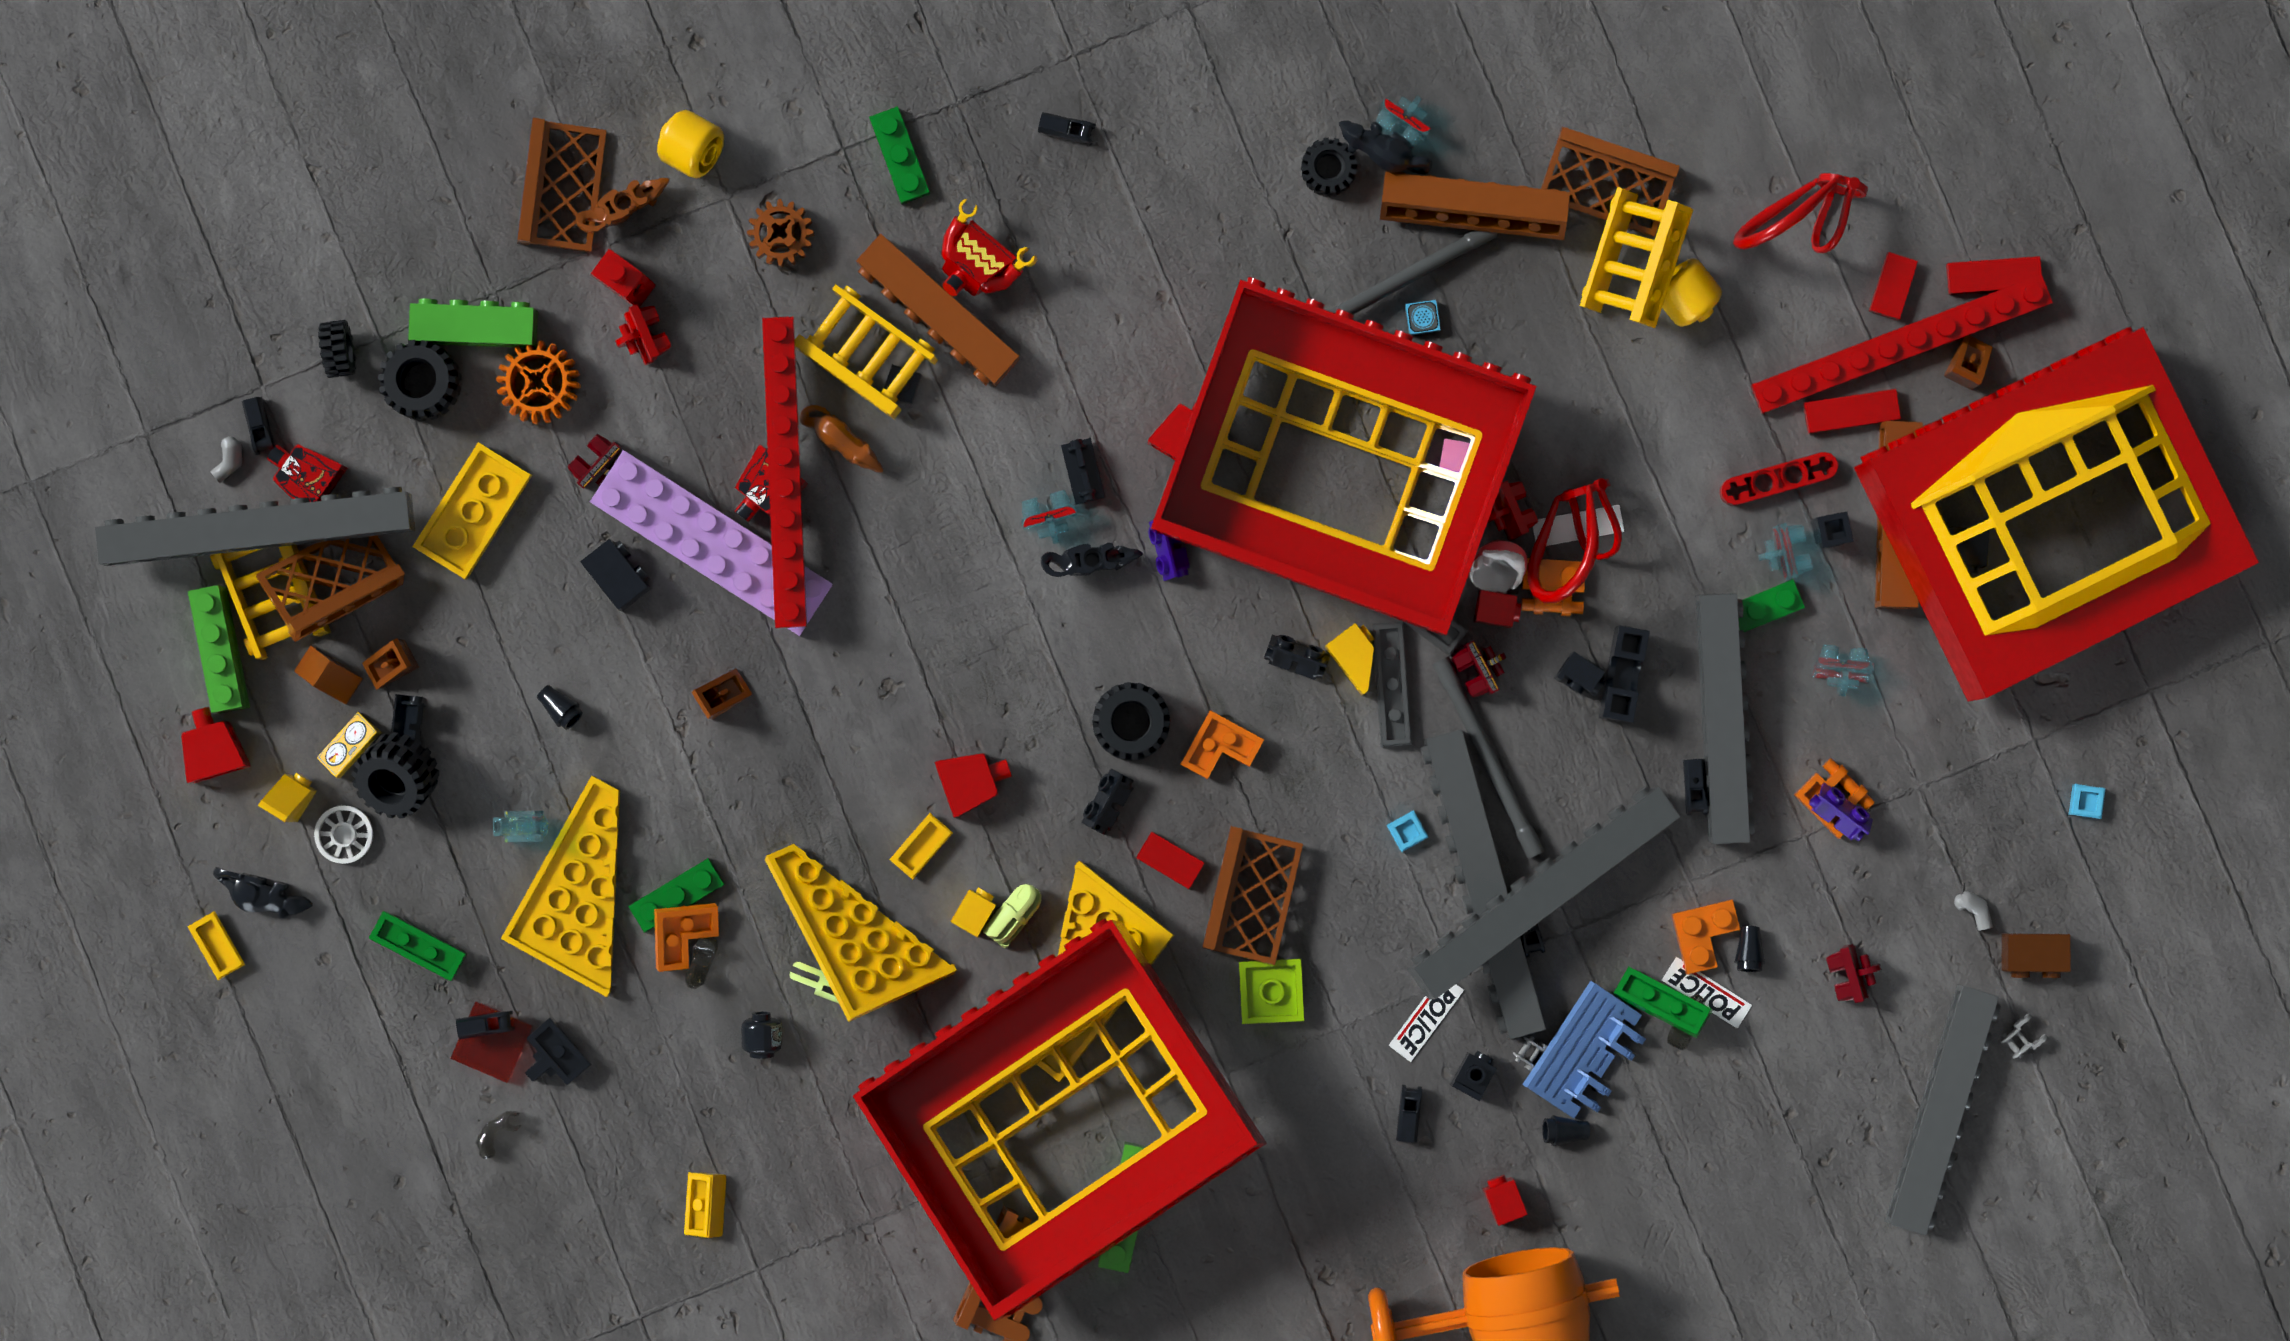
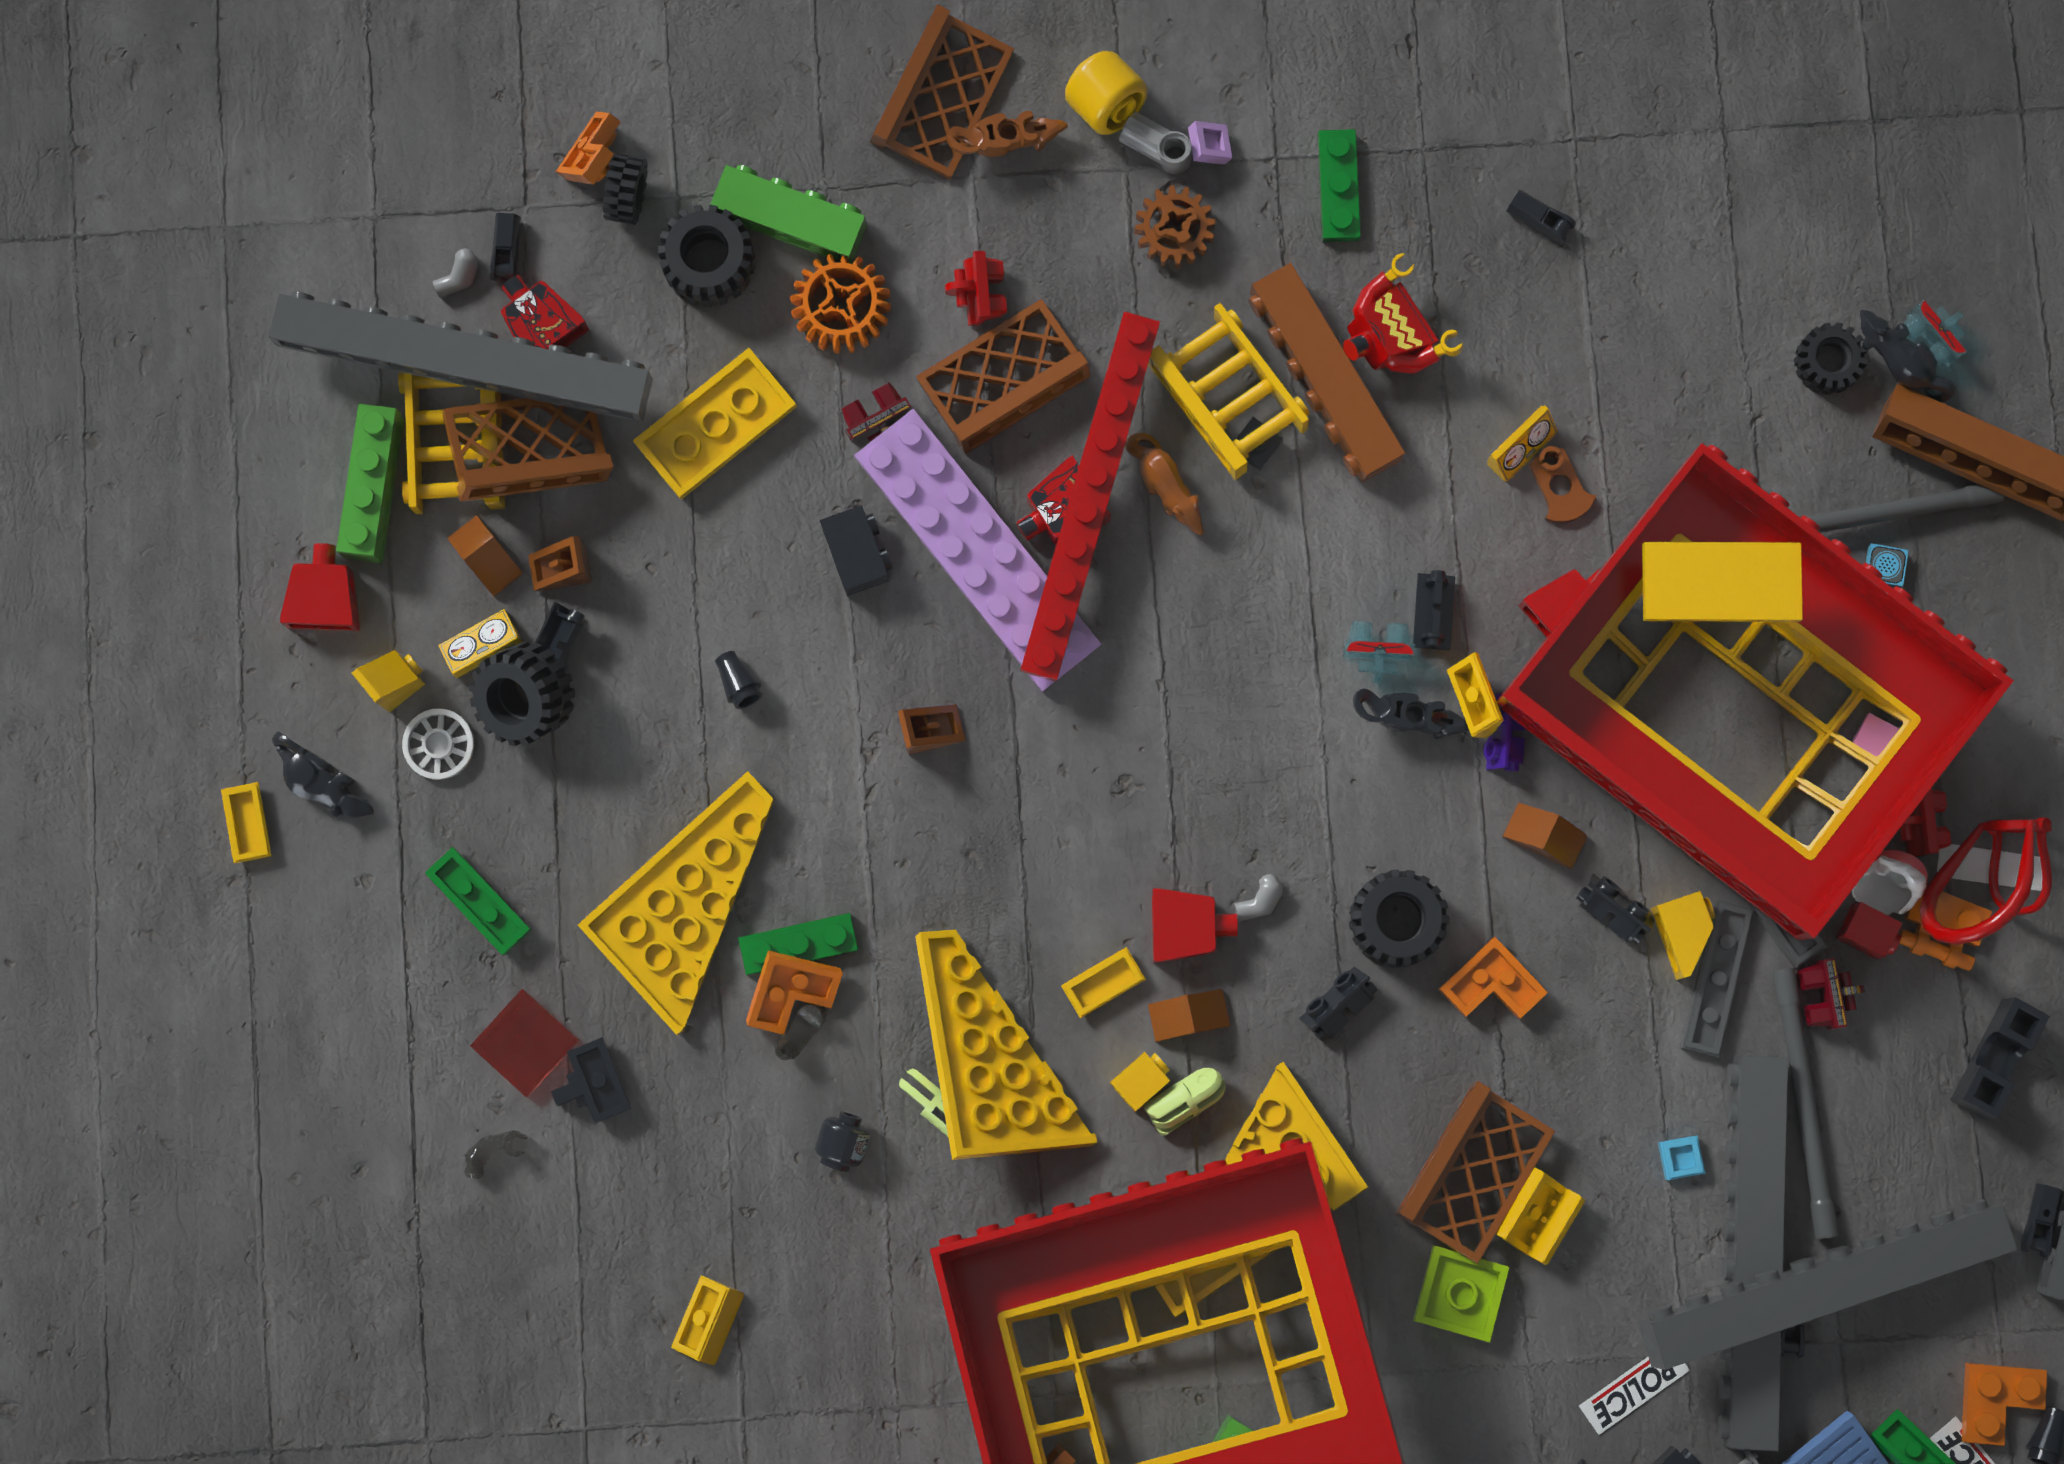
camera: 20 degrees right, 5 degrees down
(297, 334) = (590, 155): none -> orange plate
(480, 1025) = (518, 1019): black bar -> none
(521, 826) = (646, 802): clear light blue hips -> none
(623, 278) = (976, 215): red torso -> none
(702, 416) = (1026, 396): none -> dark orange fence
(742, 169) = (1154, 141): none -> light grey piece
(786, 155) = (1210, 142): none -> lavender plate
(995, 848) = (1188, 1015): none -> dark orange slope
(1024, 742) = (1264, 901): none -> light grey arm
(1110, 315) = (1523, 444): none -> slope
(1134, 529) = (1475, 696): none -> yellow slope
(1158, 354) = (1560, 507): none -> dark orange piece
(1170, 860) = (1390, 1097): red tile -> none
(1225, 617) = (1545, 834): none -> dark orange slope
(1289, 384) = (1722, 581): none -> yellow tile
(1312, 913) = (1540, 1216): none -> yellow bracket
(1581, 675) = (1946, 1041): black brick -> none

